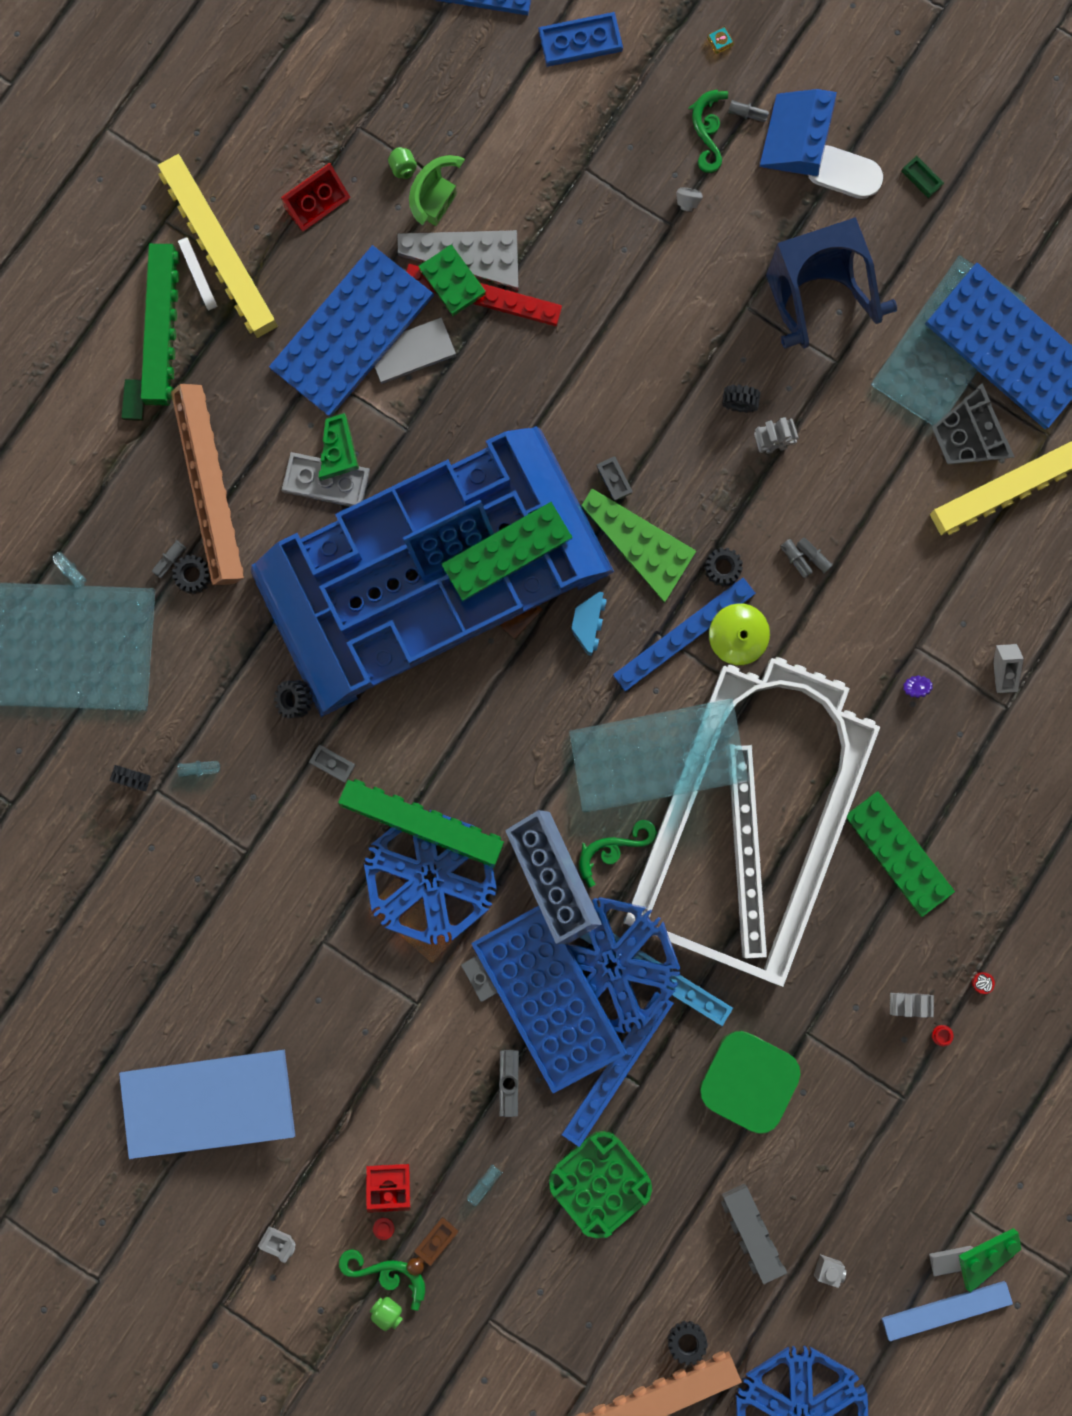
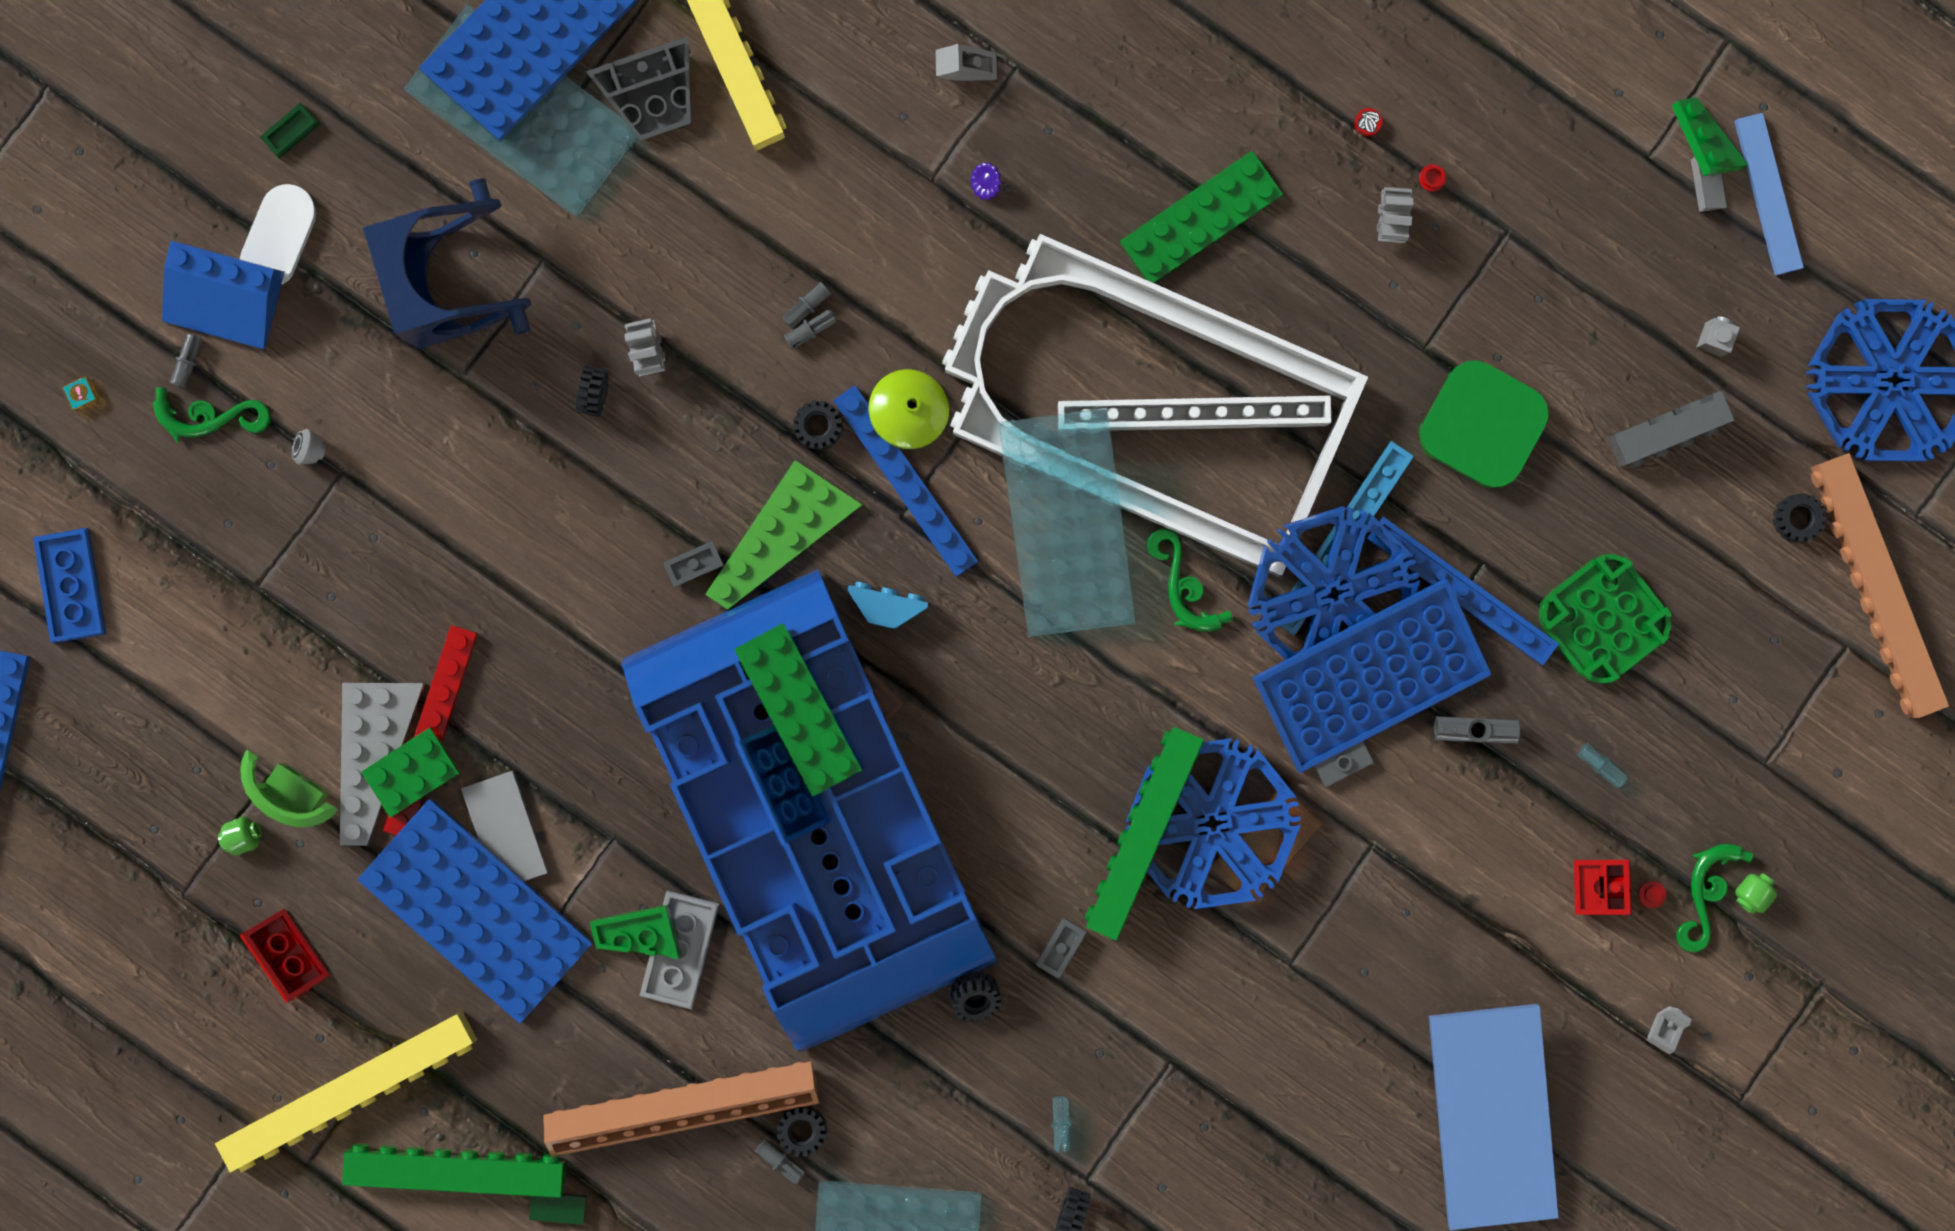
camera: 90 degrees left, 5 degrees up
(197, 273) = (385, 1119): white beam -> none
(432, 1246) = (1675, 833): reddish brown plate -> none
(553, 877) = (1221, 664): sand blue brick -> none

